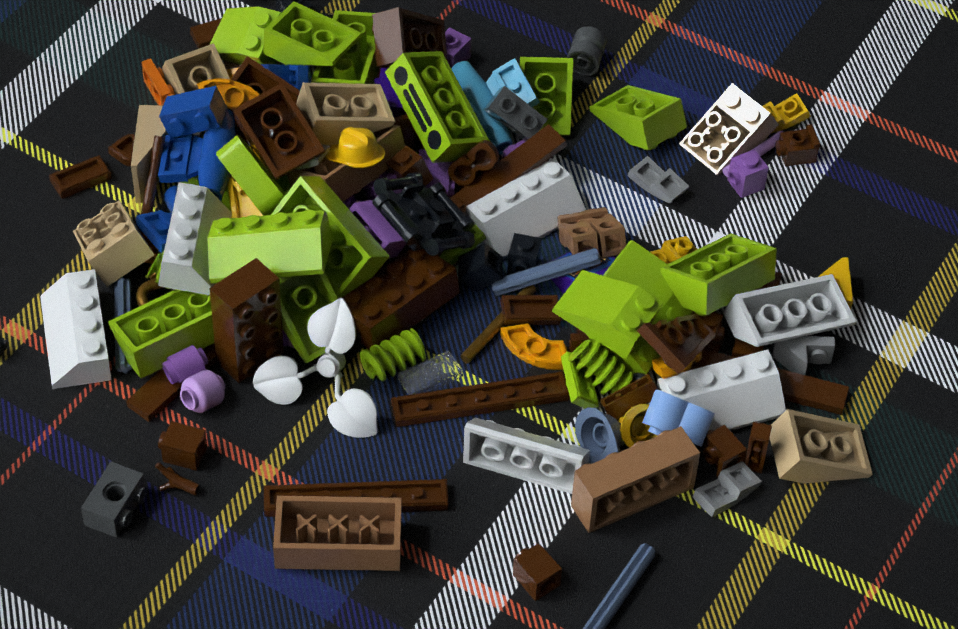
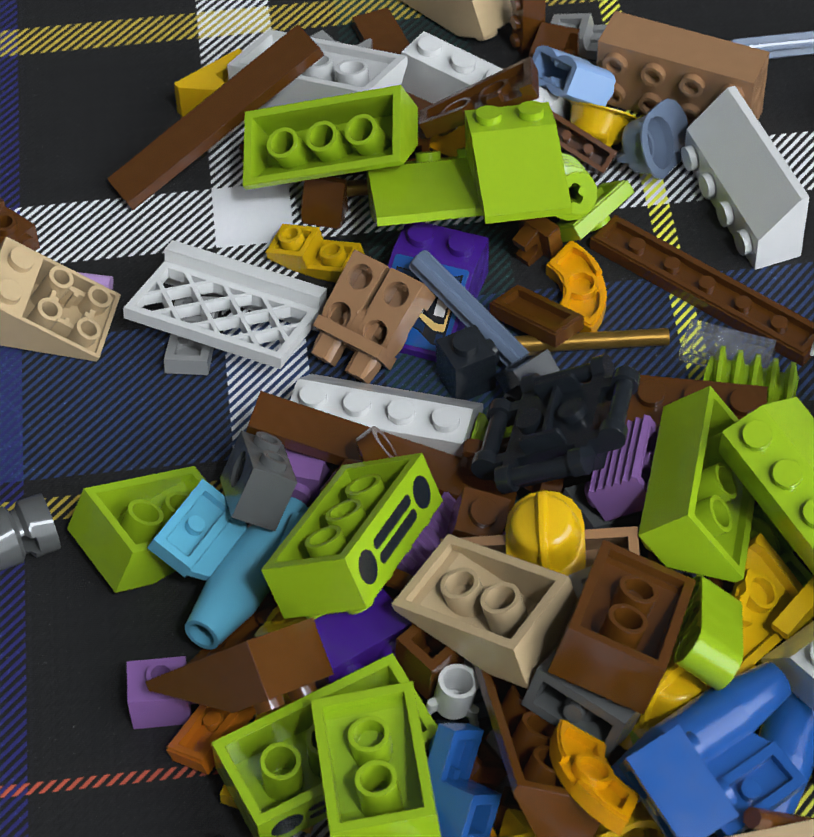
camera: 125 degrees left, 0 degrees up
(641, 116) = (93, 409): lime slope -> none
(669, 207) = (237, 285): none -> white fence
(747, 173) = (105, 246): medium lavender brick -> none
(795, 252) = (215, 116): none -> reddish brown tile

